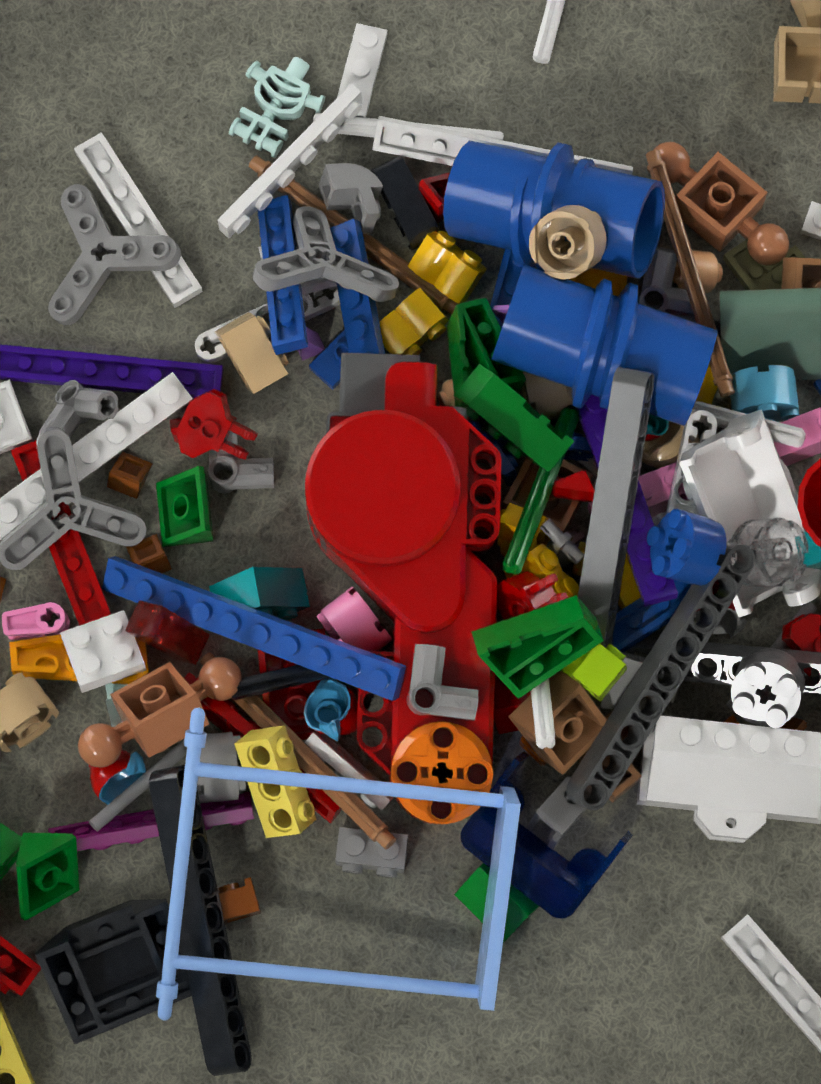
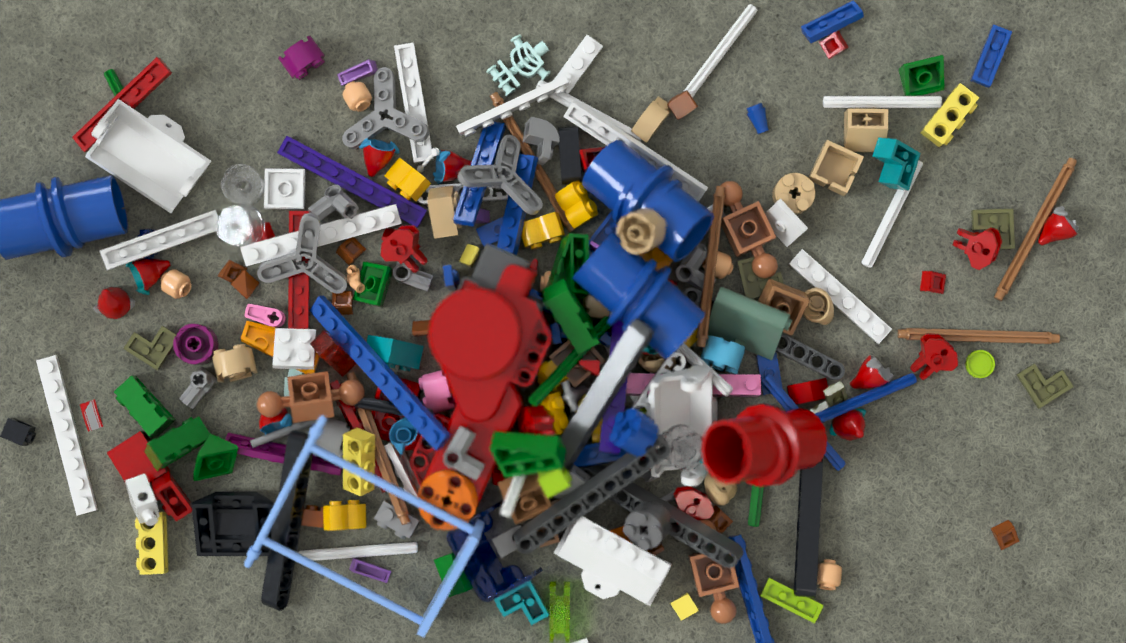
camera: 25 degrees right, 10 degrees up
(36, 207) = (357, 72): none -> medium lavender piece
(47, 242) = (357, 96): none -> light nougat head
(114, 315) = (377, 154): none -> red hat
(151, 512) = (353, 279): none -> light nougat arm
(174, 332) = (407, 180): none -> yellow brick
(201, 270) = (435, 152): none -> white hinge
(228, 289) = (448, 166): none -> red hat
(286, 878) = (344, 516): none -> yellow brick
(289, 546) = (420, 328): none -> dark orange slope
(301, 439) = (451, 277): none -> blue plate
(316, 407) = (470, 255): none -> light yellow slope
(339, 925) = (360, 551): none -> white axle
(360, 951) = (369, 570): none -> medium lavender piece
(506, 103) = (651, 119): none -> tan brick
(542, 65) = (682, 104): none -> slope
(628, 888) = (523, 597): none -> teal brick
(661, 41) = (758, 117): none -> blue cone
(687, 890) = (559, 612): none -> clear neon green piece
(772, 168) = (785, 223): none -> white plate
(778, 117) = (804, 189): none -> tan brick

